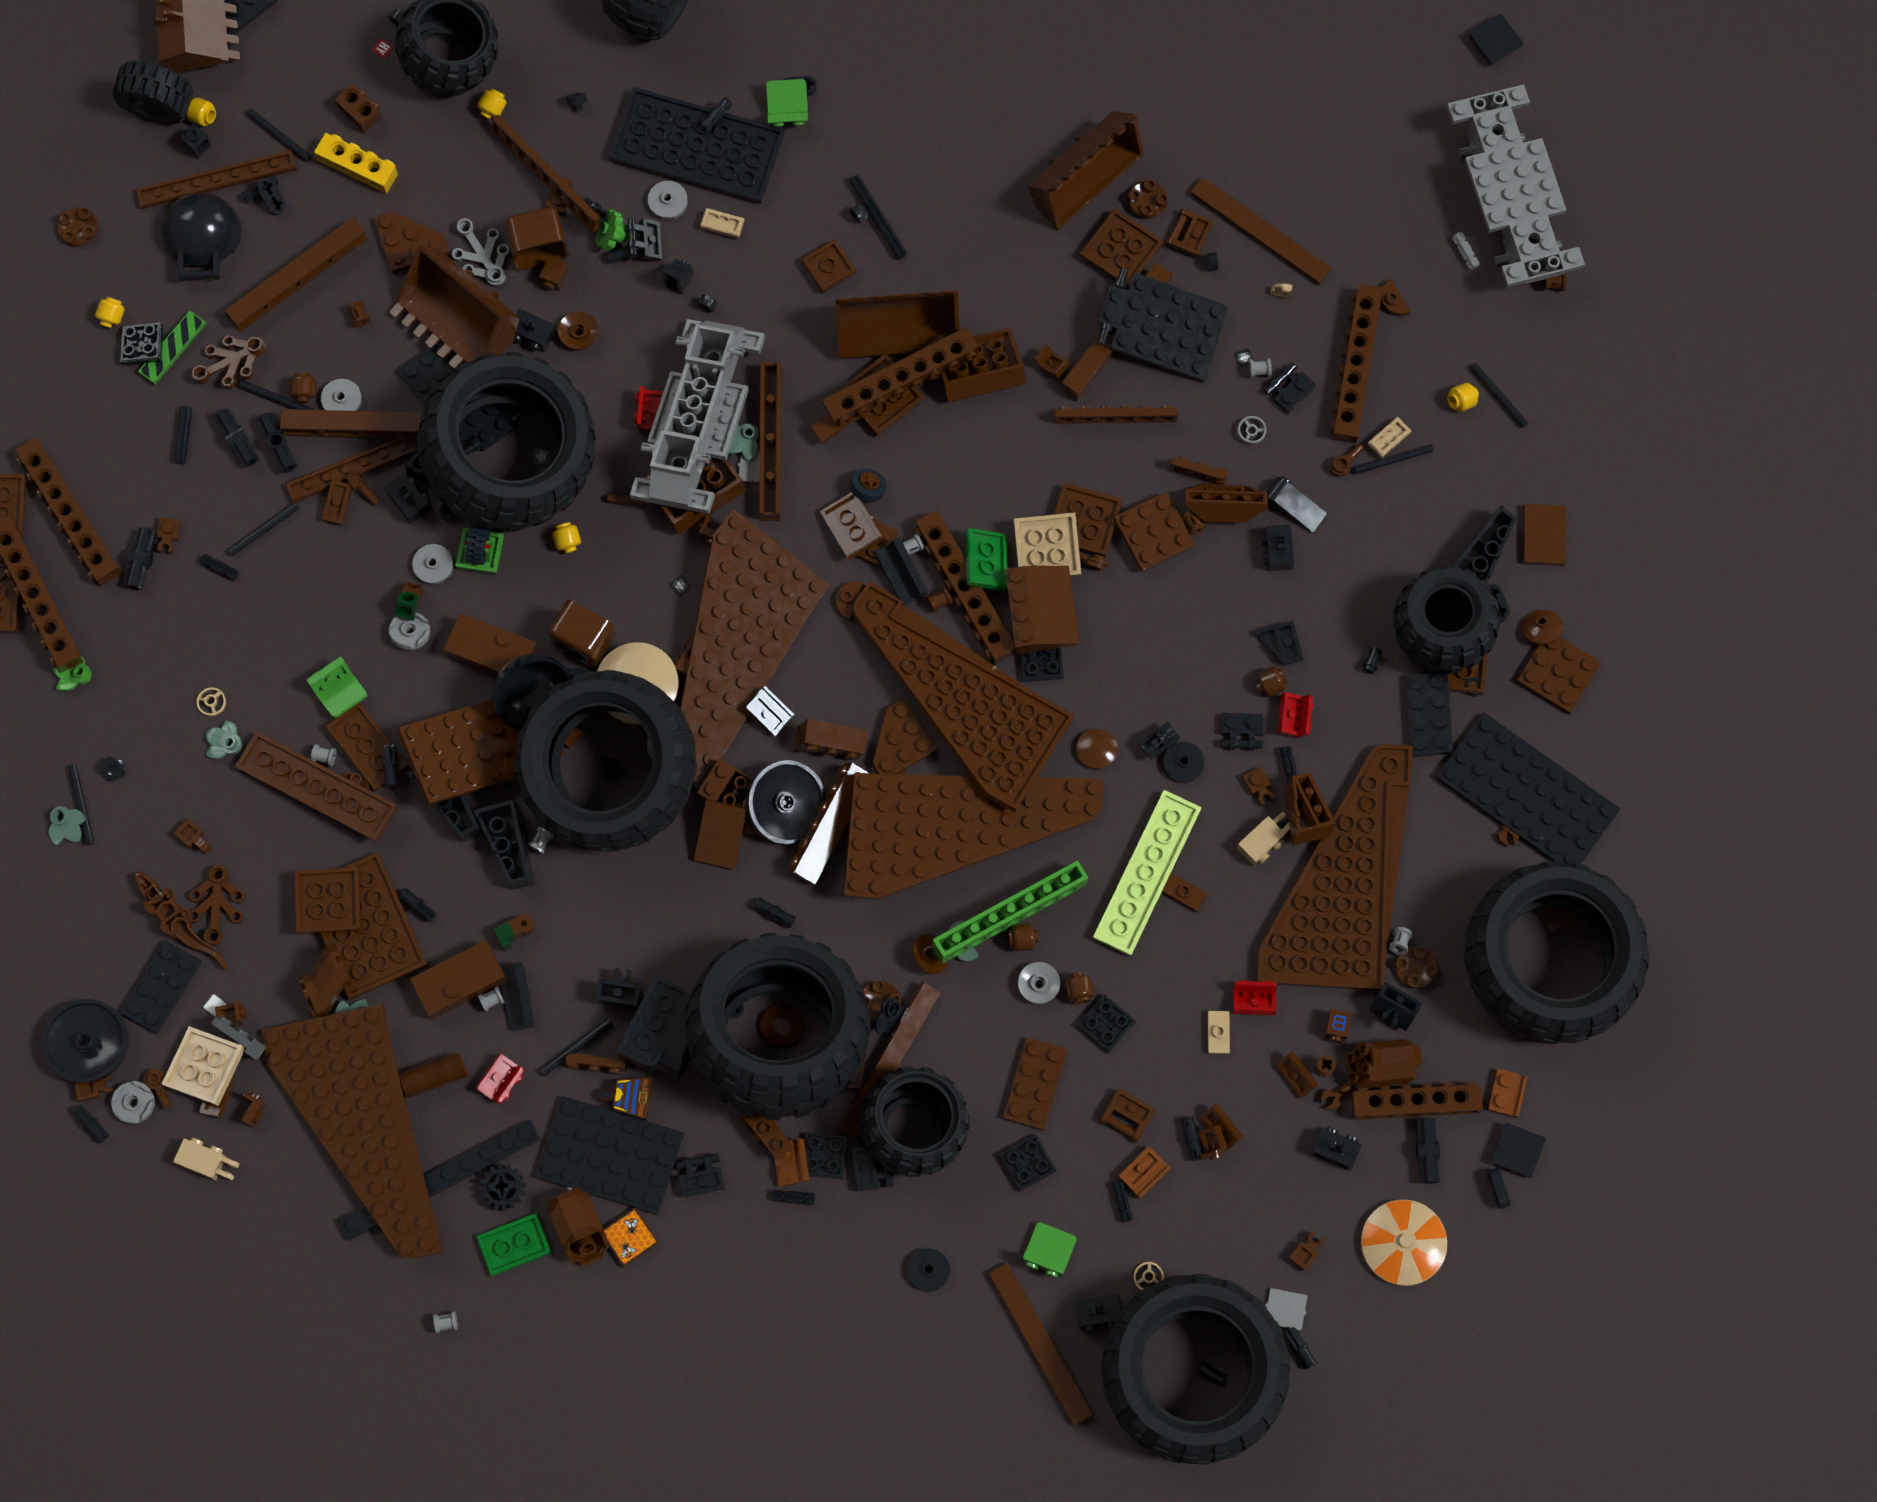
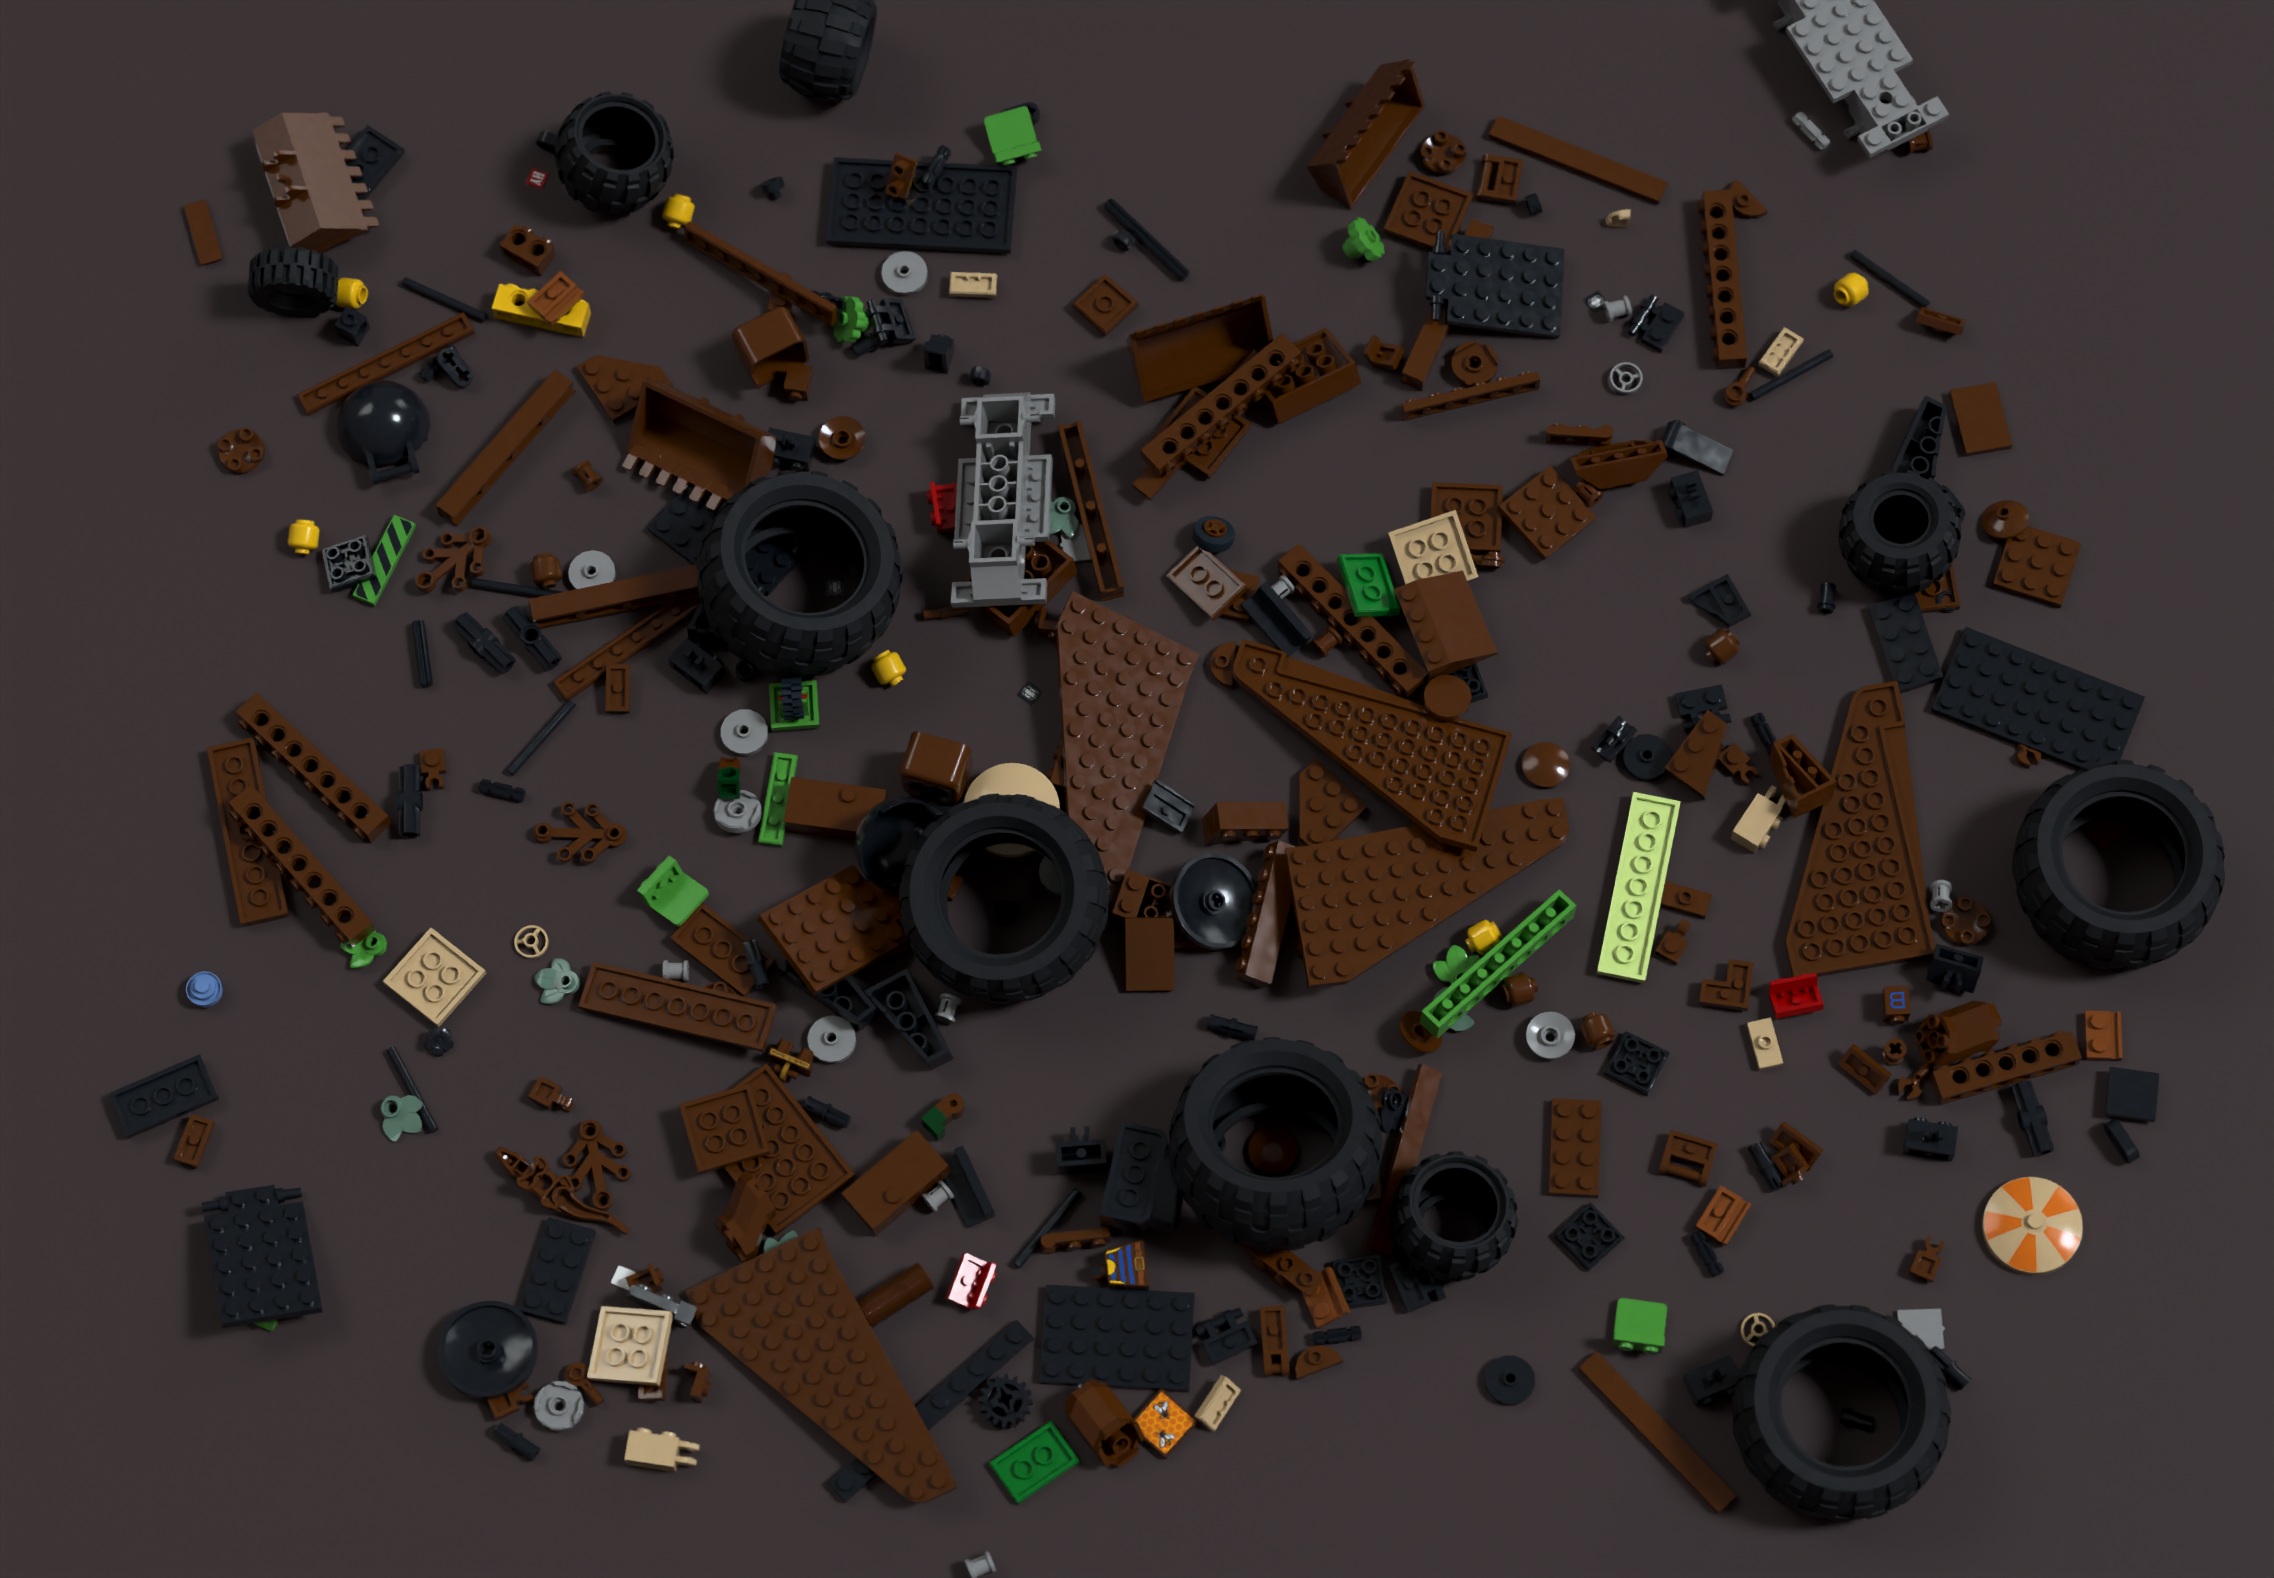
camera: 10 degrees left, 5 degrees down
(93, 31) = (203, 232): none -> reddish brown piece
(123, 713) = (434, 977): none -> tan plate
(277, 620) = (583, 833): none -> reddish brown plant
(357, 481) = (637, 662): reddish brown bar -> none
(368, 156) = (556, 298): none -> dark orange plate
(392, 847) = (782, 1056): none -> reddish brown hips
(446, 851) = (834, 1051): none -> light grey plate
(457, 603) = (772, 825): none -> bright green tile
(483, 255) = (710, 381): light grey plant -> none
(678, 1231) = (1217, 1403): none -> tan plate
(683, 116) = (901, 176): none -> reddish brown hips
(740, 1188) = (1274, 1339): none -> reddish brown plate
(770, 1214) = (1315, 1360): none -> reddish brown plate
(975, 903) = (1455, 965): none -> bright green plate
(1004, 885) = (1483, 937): none -> yellow head
(1027, 672) = (1447, 697): none -> reddish brown tile
(1059, 260) = (1363, 241): none -> bright green plant
(1132, 379) = (1477, 352): none -> reddish brown plate
(1163, 929) = (1674, 945): none -> reddish brown plate
(1202, 982) = (1732, 993): none -> reddish brown plate
(1227, 771) = (1699, 754): none -> reddish brown wedge
(1295, 715) = (1758, 677): red bracket -> none
(1532, 442) = (1940, 321): none -> reddish brown plate

